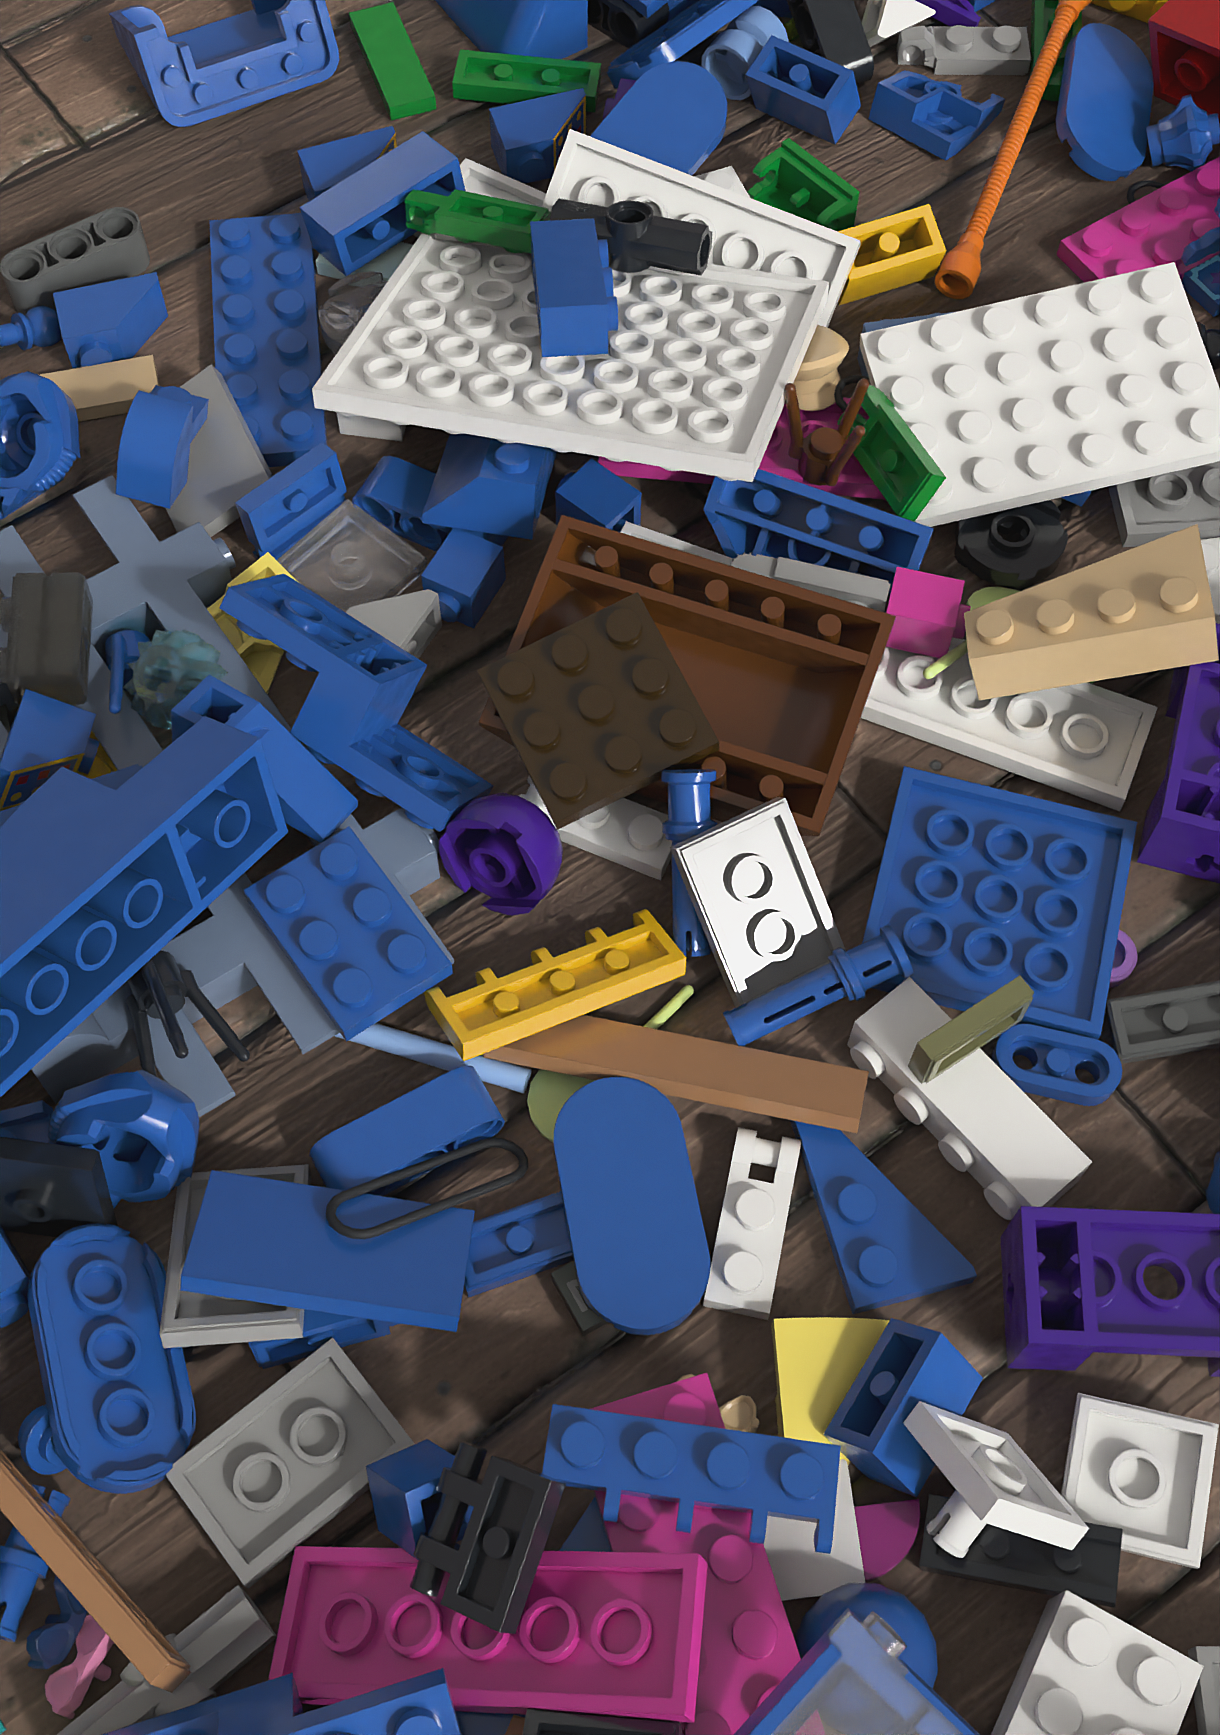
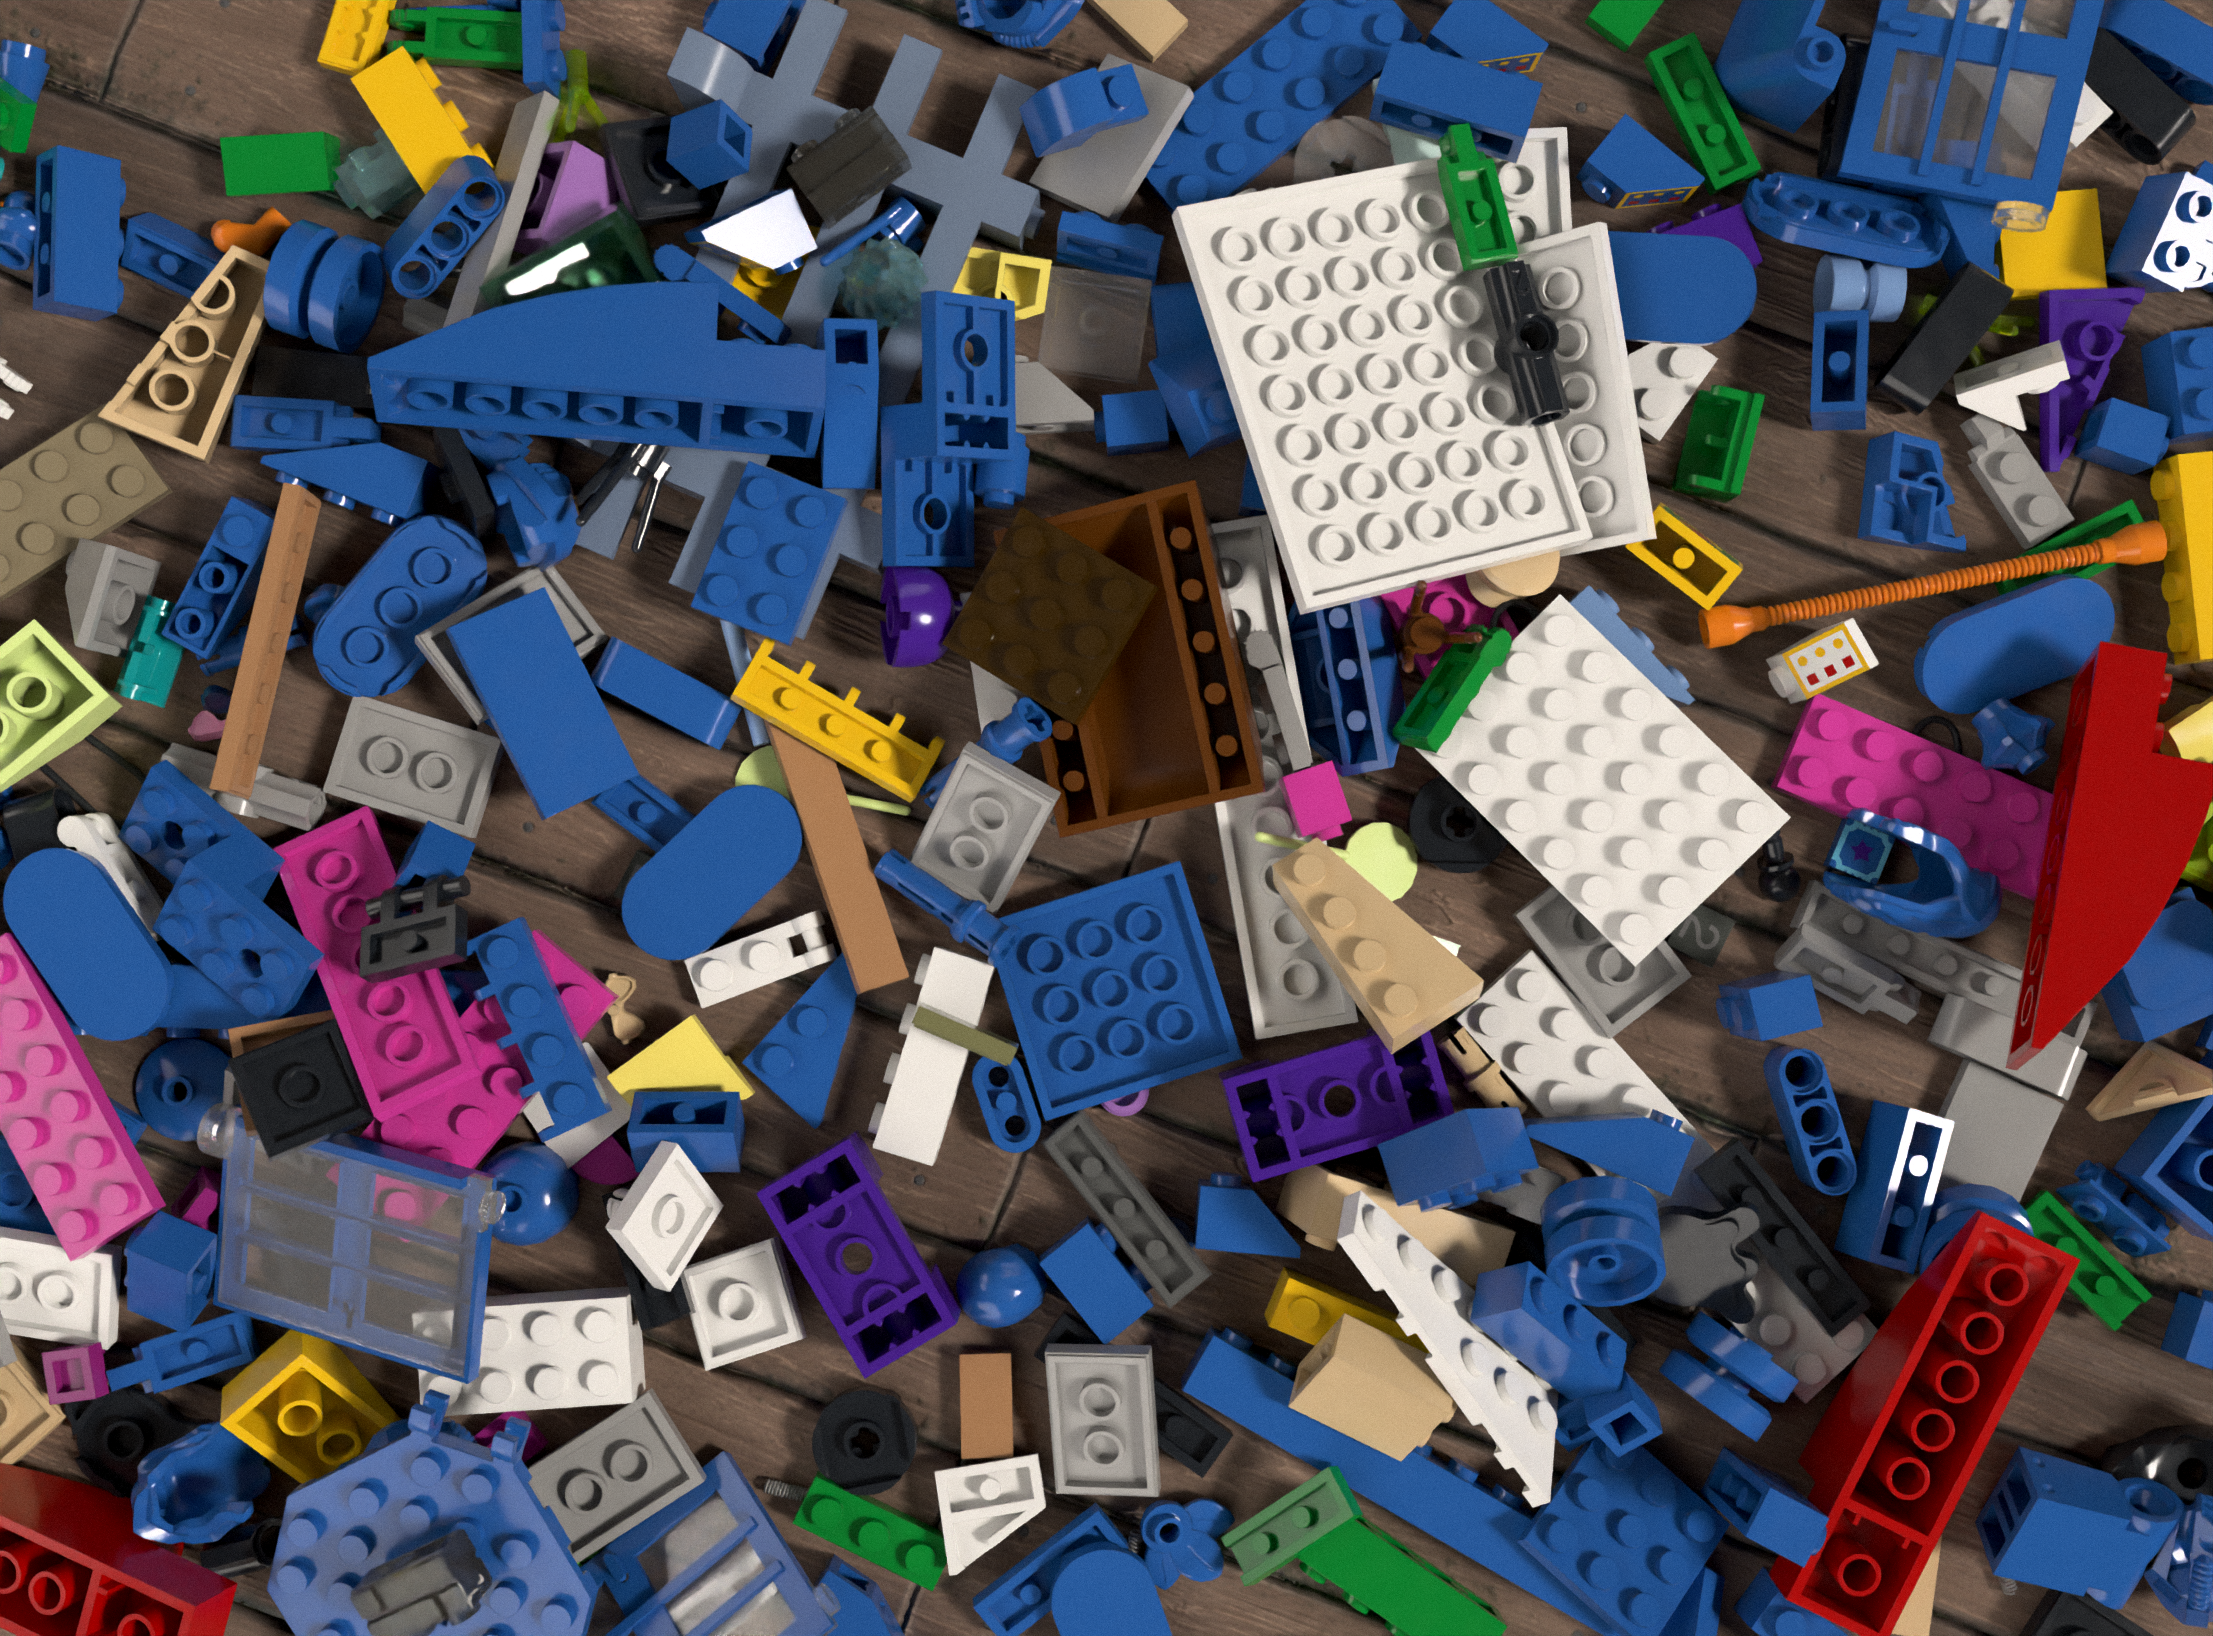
camera: 50 degrees right, 25 degrees up
(408, 1218) = (622, 750): black piece -> none
(433, 712) = (1006, 481): none -> blue brick
(572, 288) = (1422, 338): blue brick -> none
(1039, 209) = (1820, 661): none -> white slope

